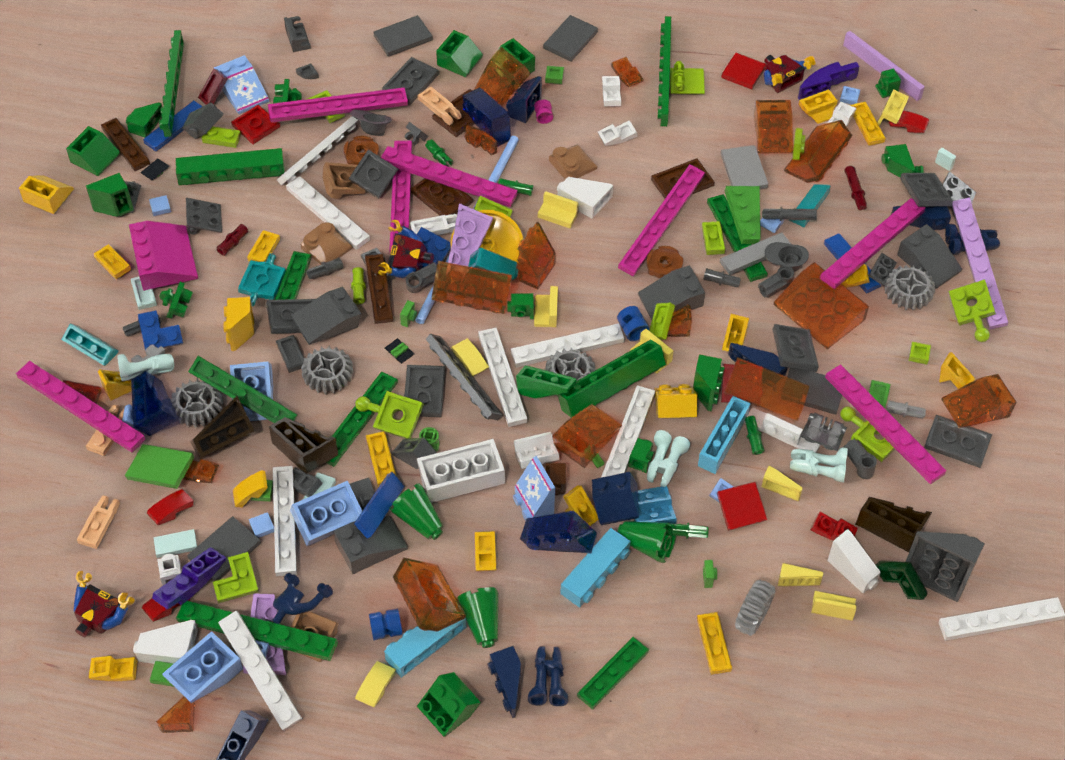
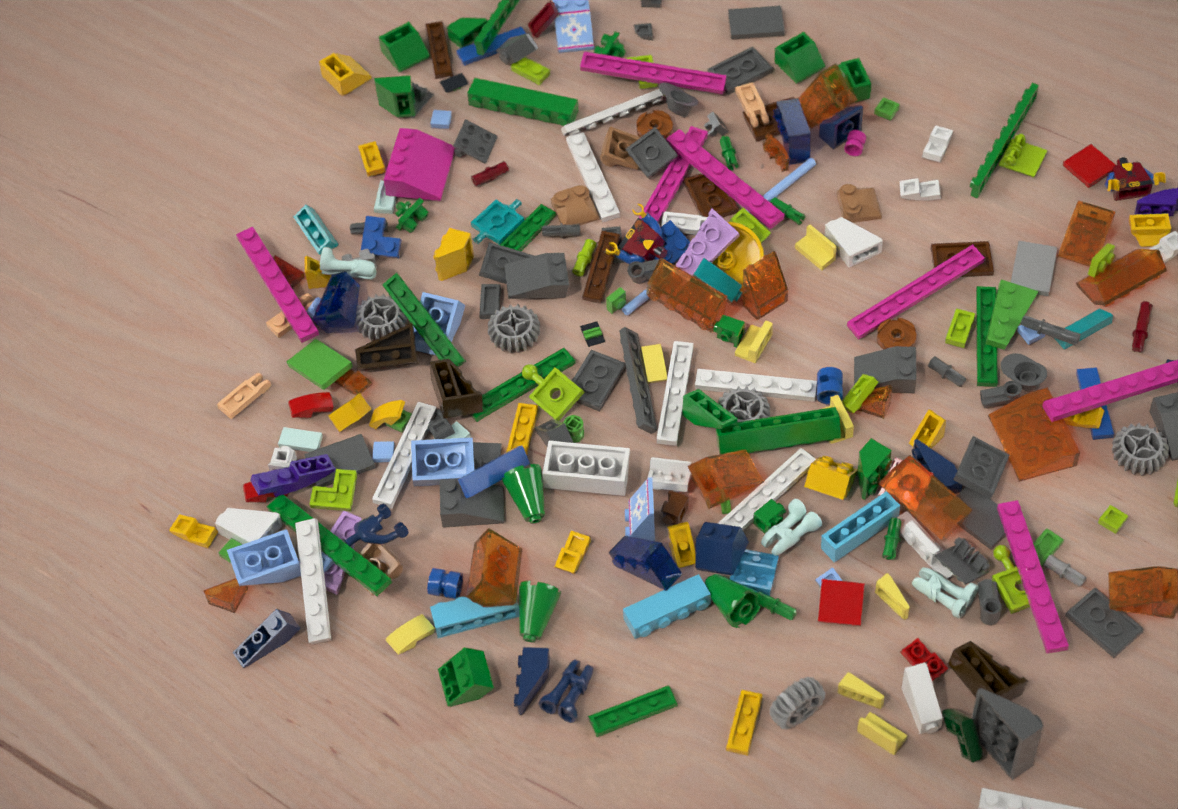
camera: 30 degrees right, 0 degrees up
(97, 608) = (203, 470): torso -> none
(211, 501) = (349, 412): none -> yellow slope
(255, 124) = (566, 68): red tile -> none
(263, 246) = (515, 190): yellow plate -> none
(570, 38) = (925, 75): dark grey tile -> none
(627, 74) = (964, 129): clear orange slope -> none
(709, 573) = (773, 654): bright green plate -> none
(750, 255) = (987, 358): light grey tile -> none
(882, 268) = (1121, 418): dark grey slope -> none
(955, 371) = (1137, 550): yellow slope -> none

